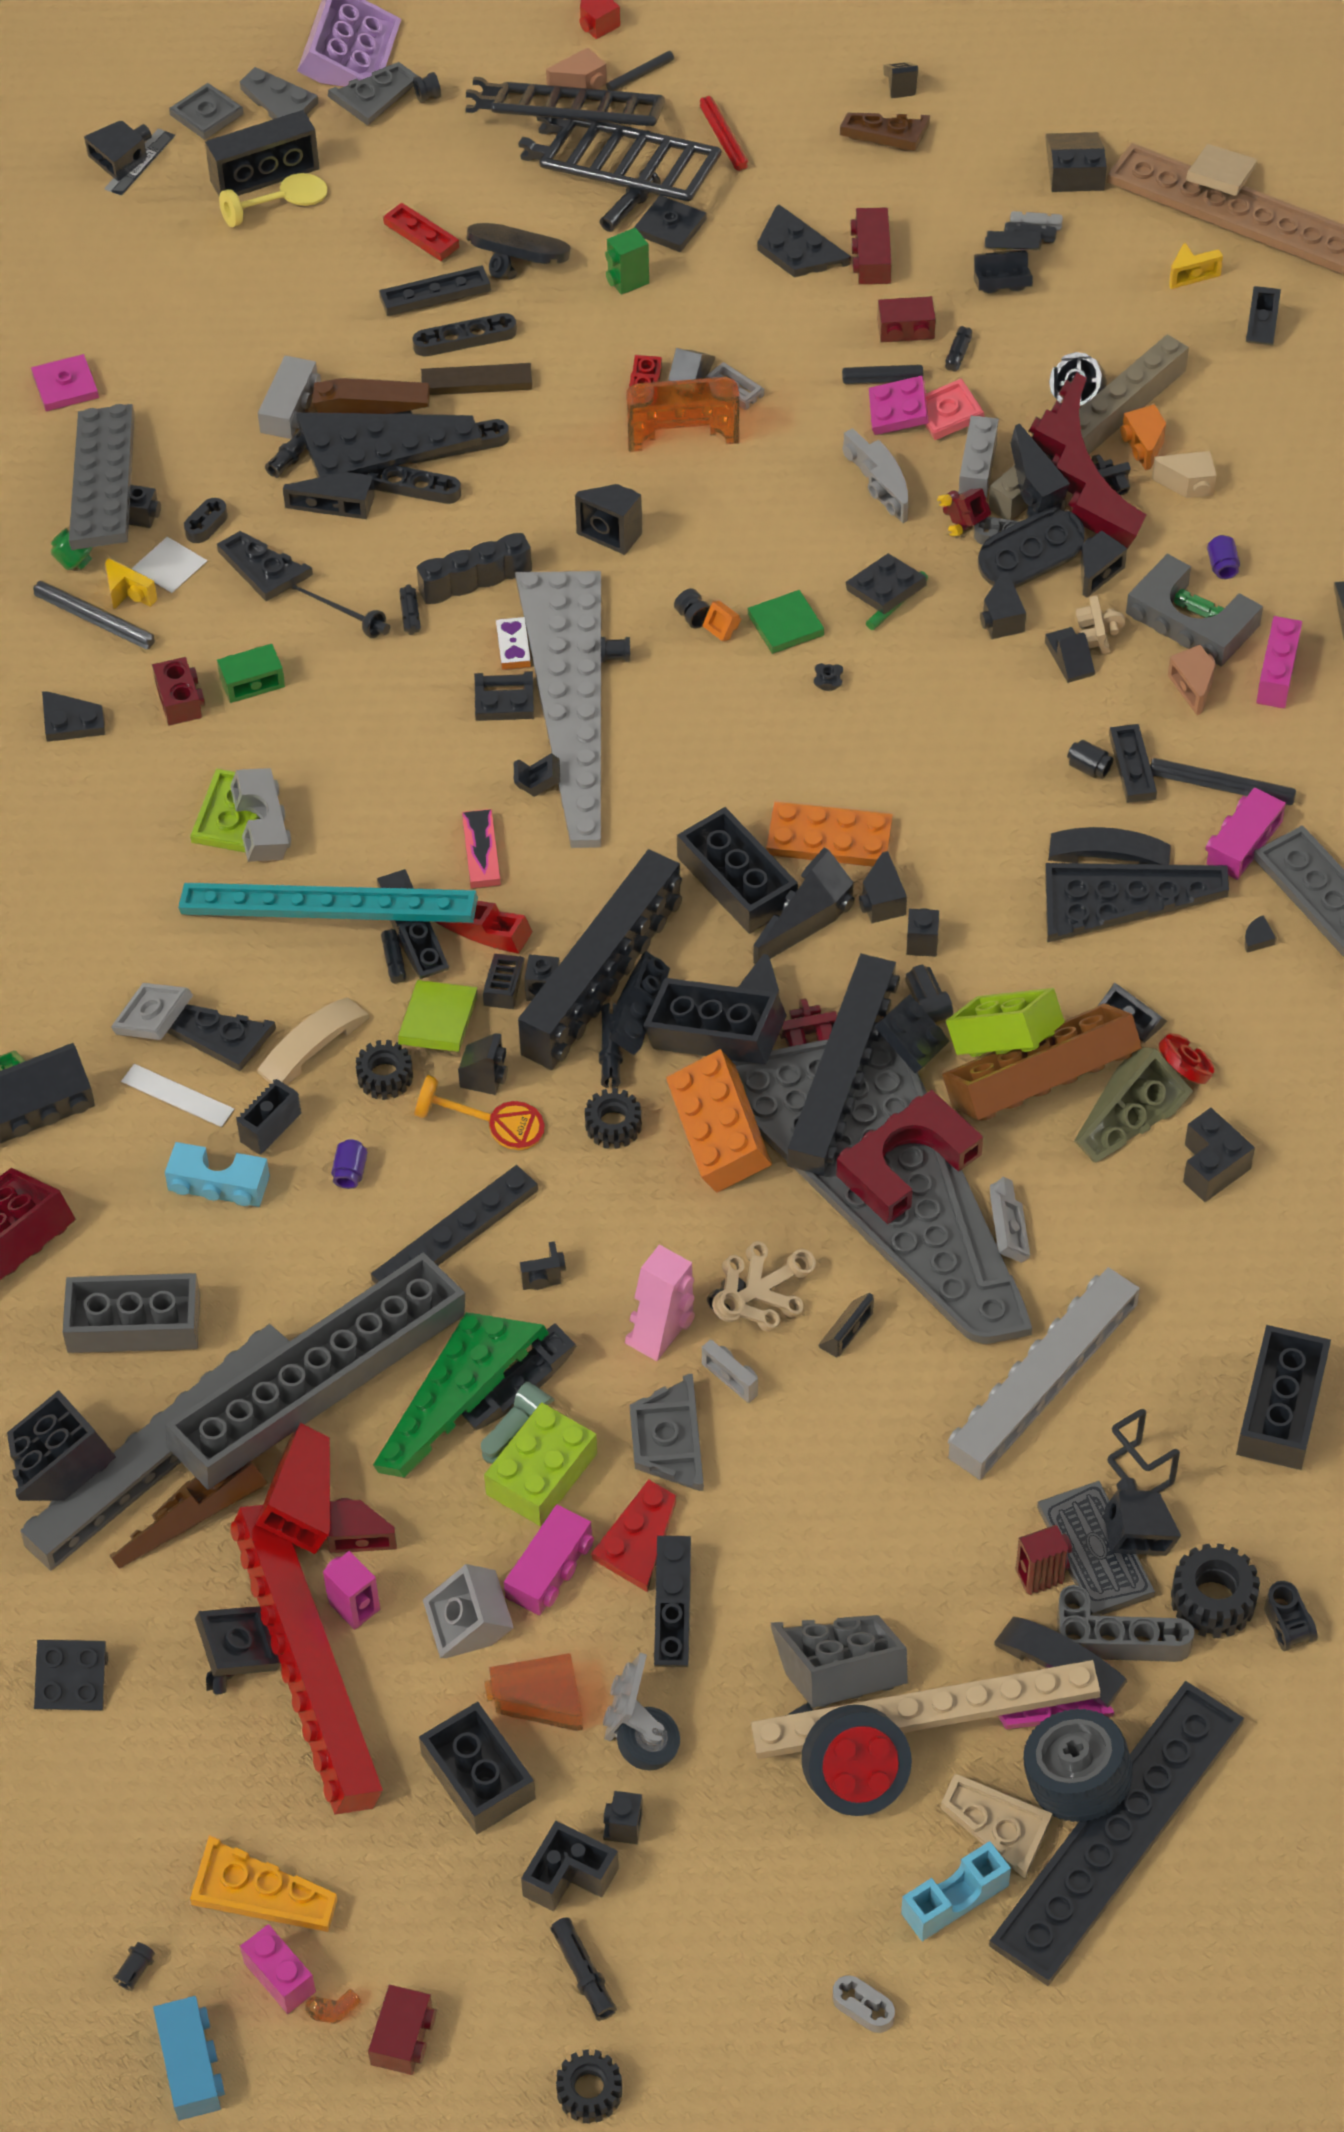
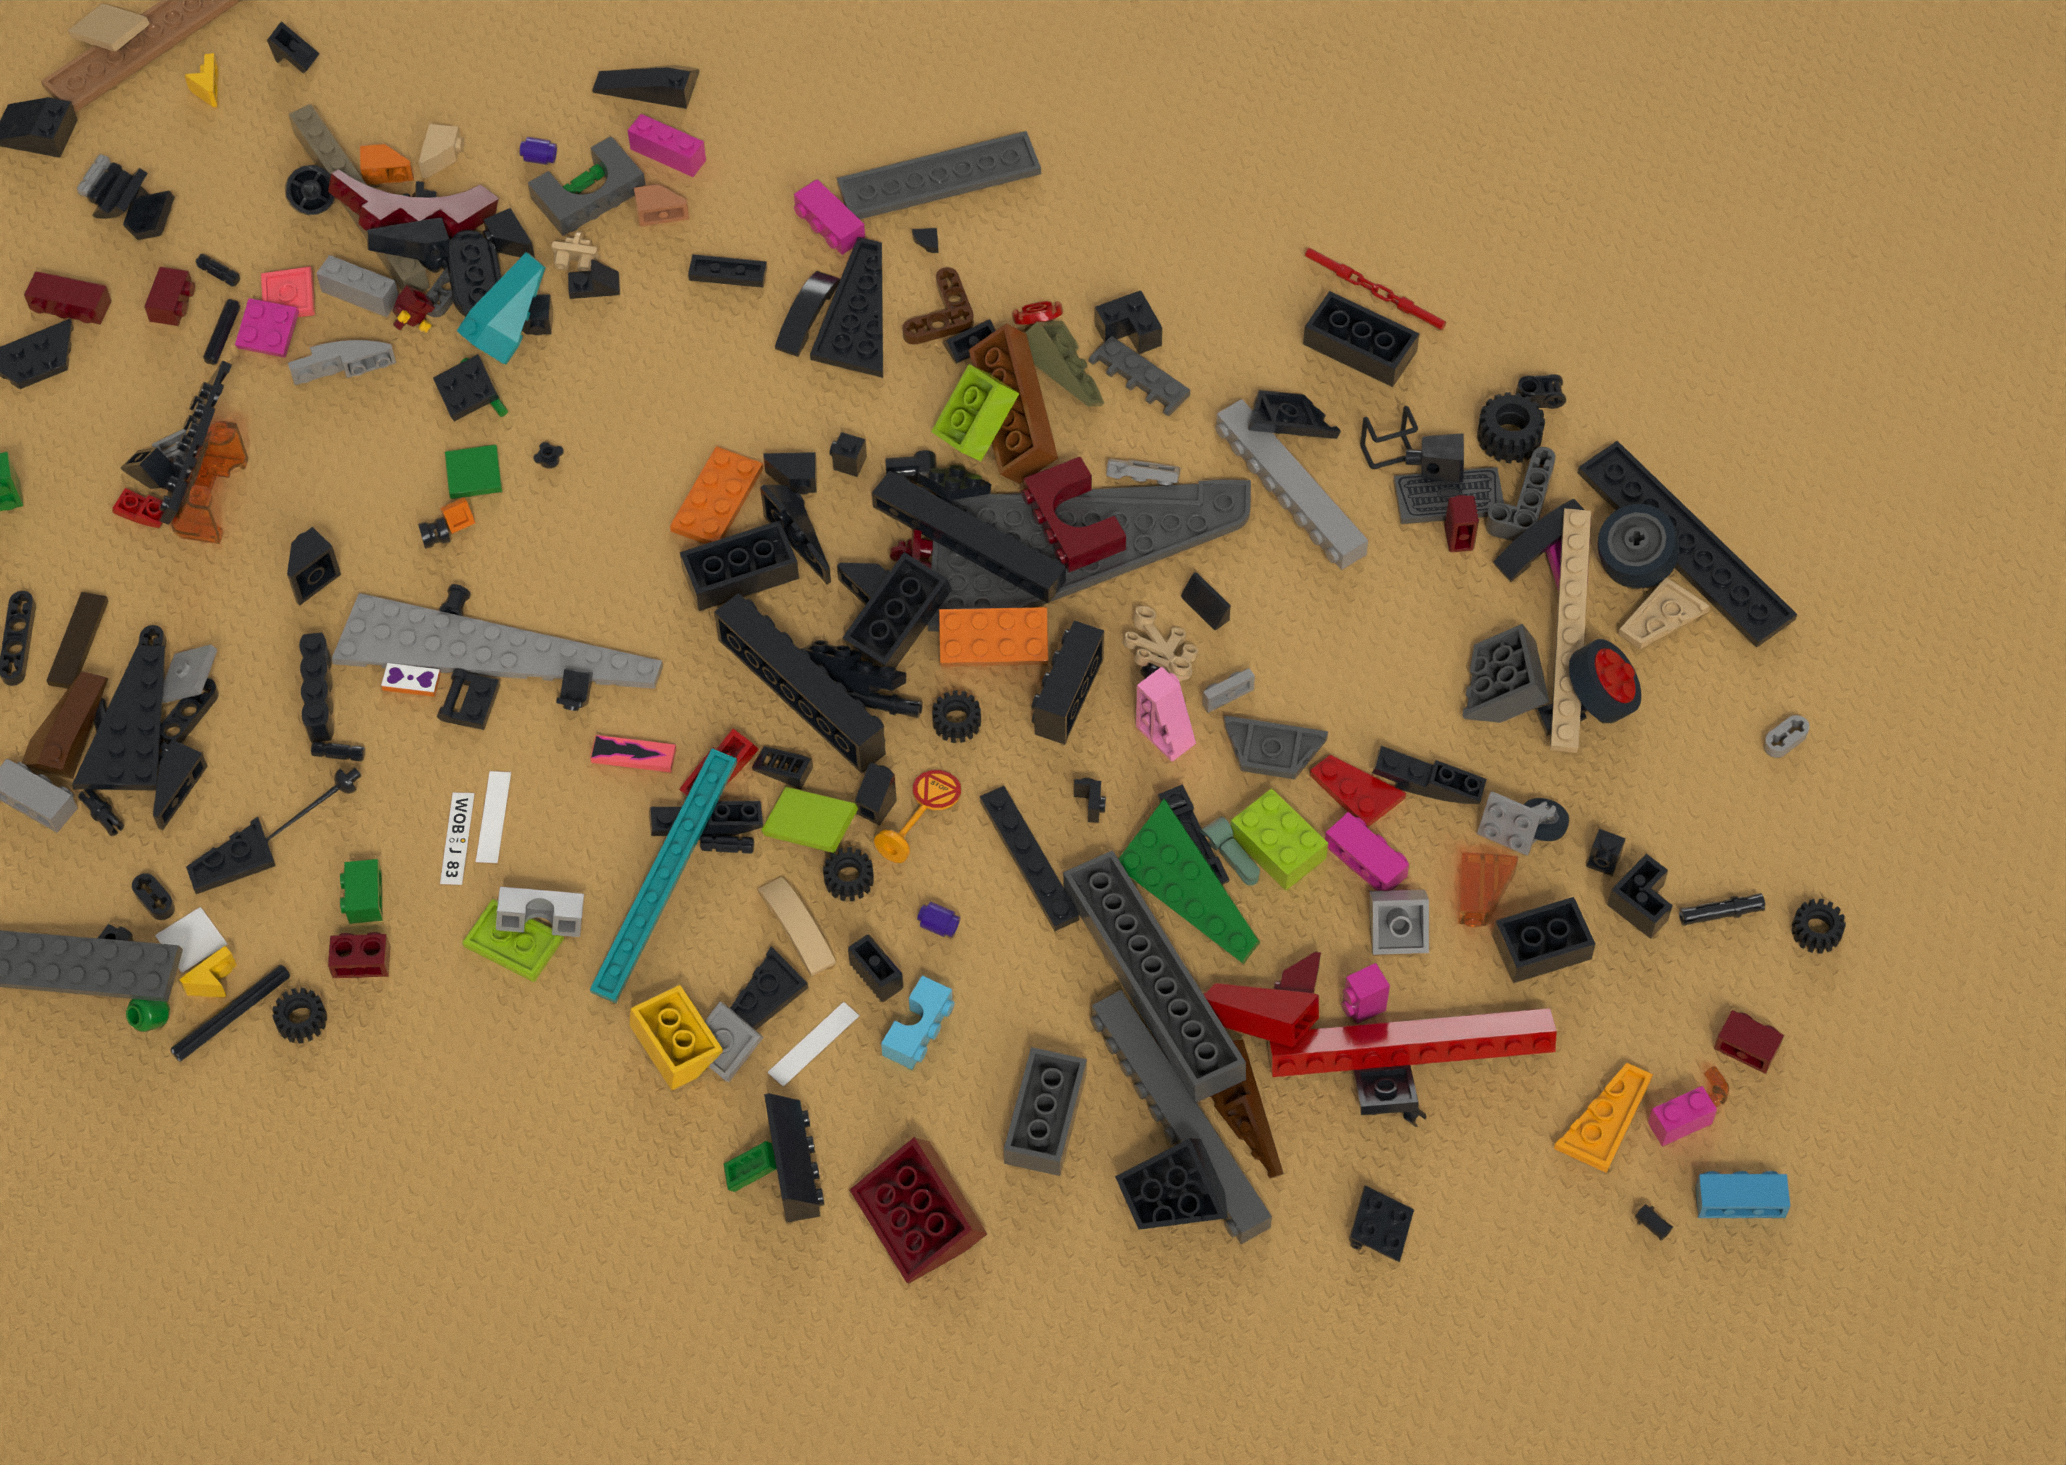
camera: 75 degrees left, 5 degrees up
(71, 717) = (348, 1054): black wing -> none
(97, 654) = (296, 1001): none -> black tyre
(140, 961) = (674, 1036): none -> yellow slope
(340, 734) = (457, 838): none -> white sticker
(374, 756) = (493, 817): none -> white sticker
(456, 465) = (188, 673): none -> light grey plate
(538, 972) = (798, 733): black brick -> none
(680, 1205) = (1068, 682): none -> black brick
(748, 375) = (196, 430): none -> black wing
(937, 1905) = (1709, 637): medium azure arch -> none
(980, 574) = (500, 314): none -> teal wedge
(1090, 759) = (714, 297): black brick -> none
(1138, 1343) = (1289, 415): none -> black wing
(1150, 1189) = (1141, 374): none -> dark grey hinge
(1165, 983) = (953, 312): none -> reddish brown beam
(1219, 780) = (768, 218): black axle -> none

